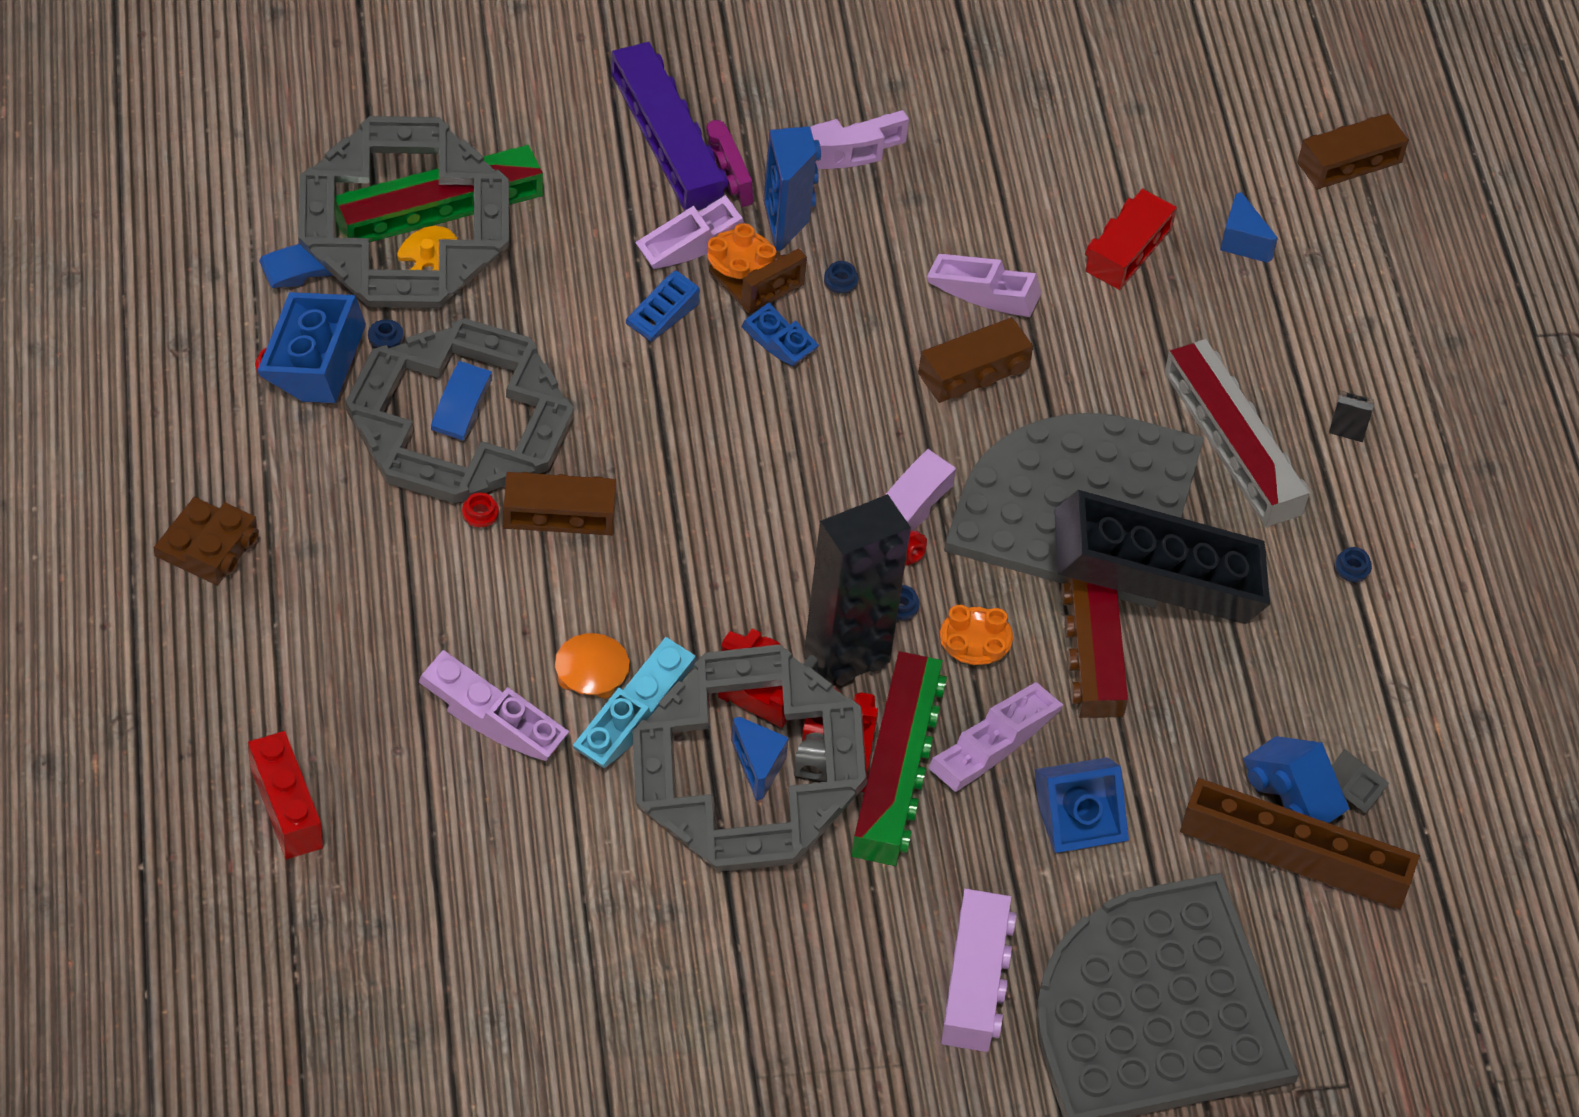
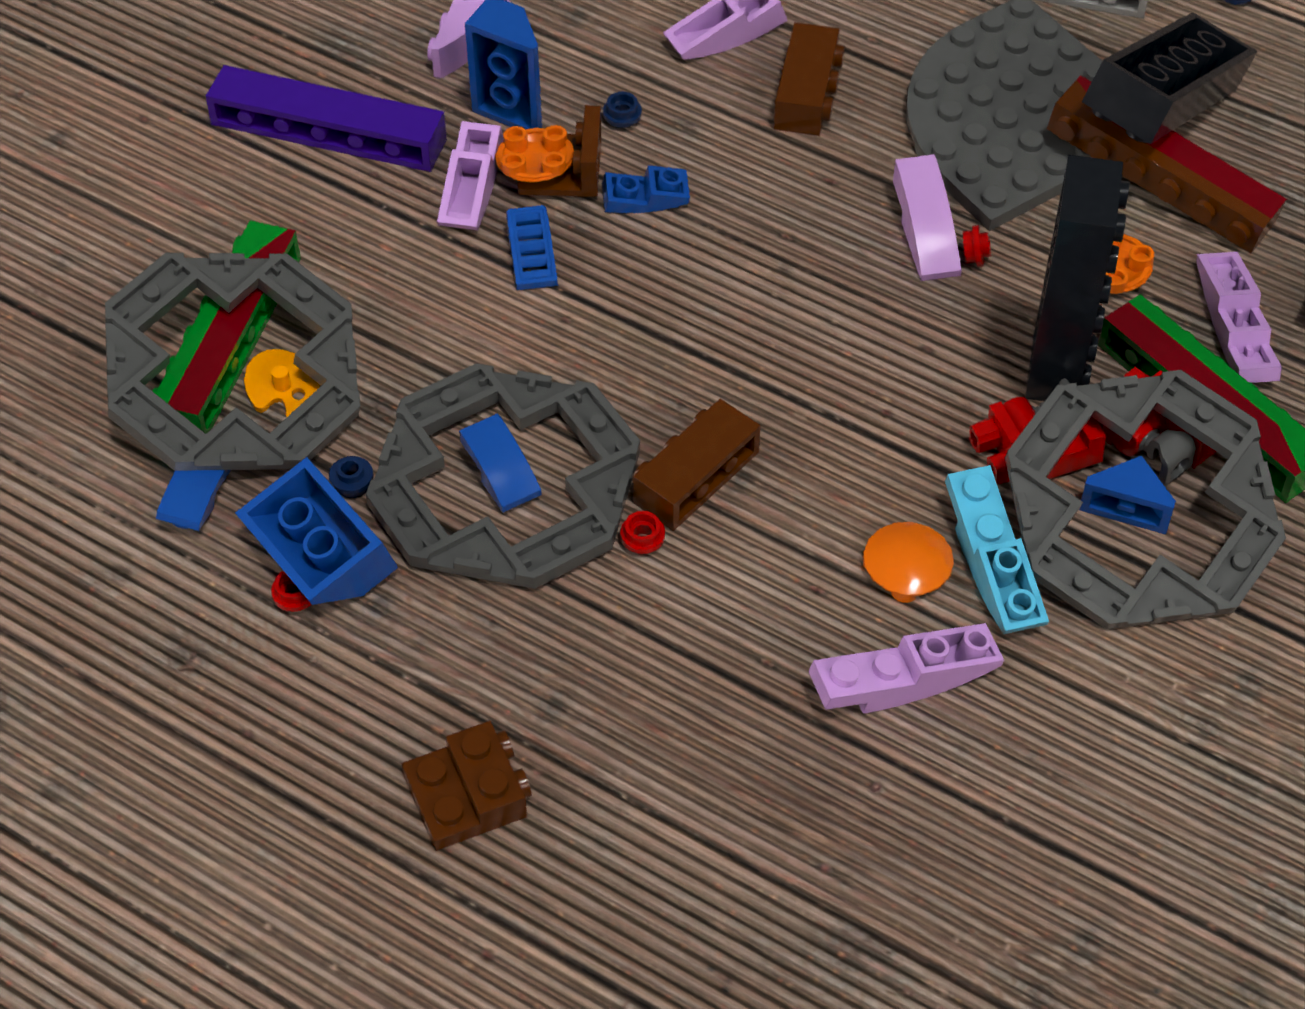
camera: 45 degrees left, 0 degrees up
(285, 795) = (871, 917): red brick -> none
(730, 160) = (419, 94): magenta hinge -> none
(911, 603) = (1027, 289): dark blue plate -> none

